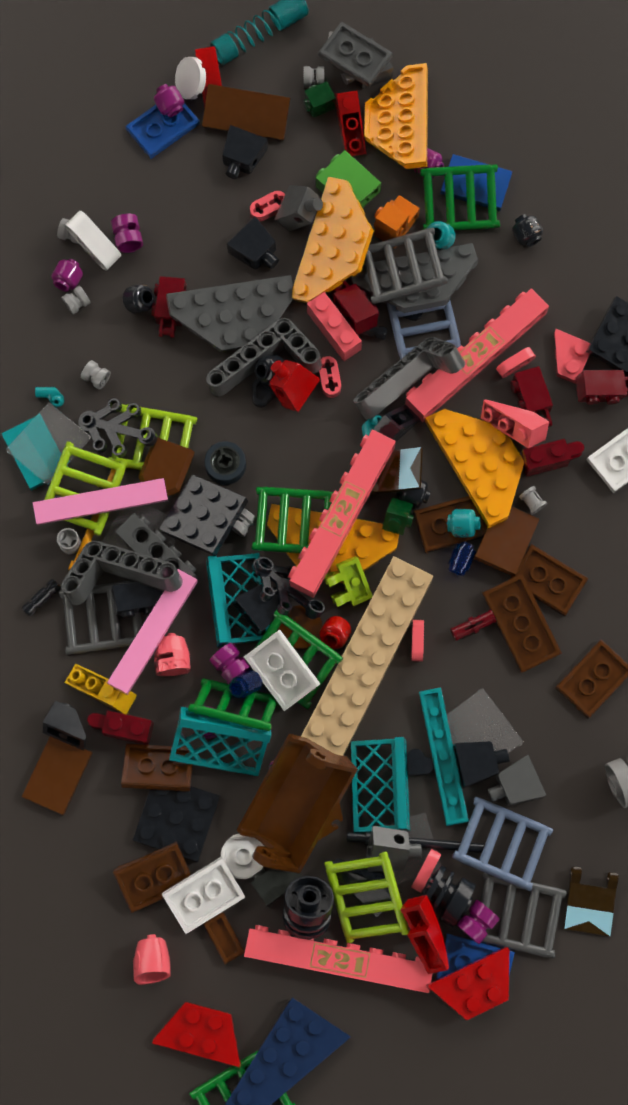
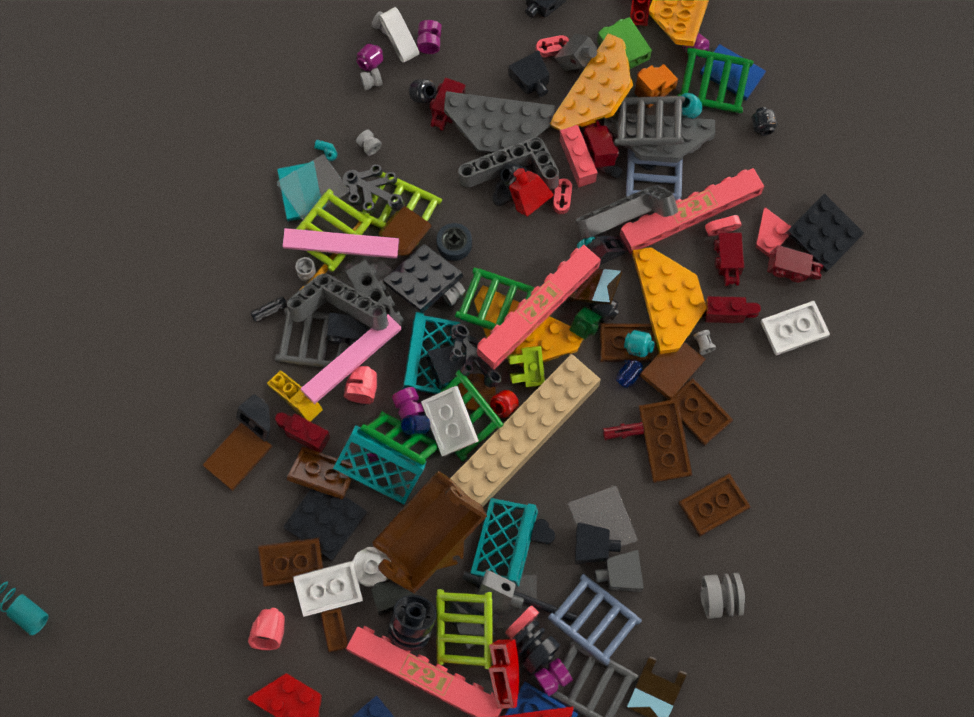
camera: 15 degrees right, 5 degrees down
(417, 641) = (571, 430): coral beam -> none
(443, 756) = (565, 533): teal tile -> none
(515, 422) = (708, 274): coral slope -> none

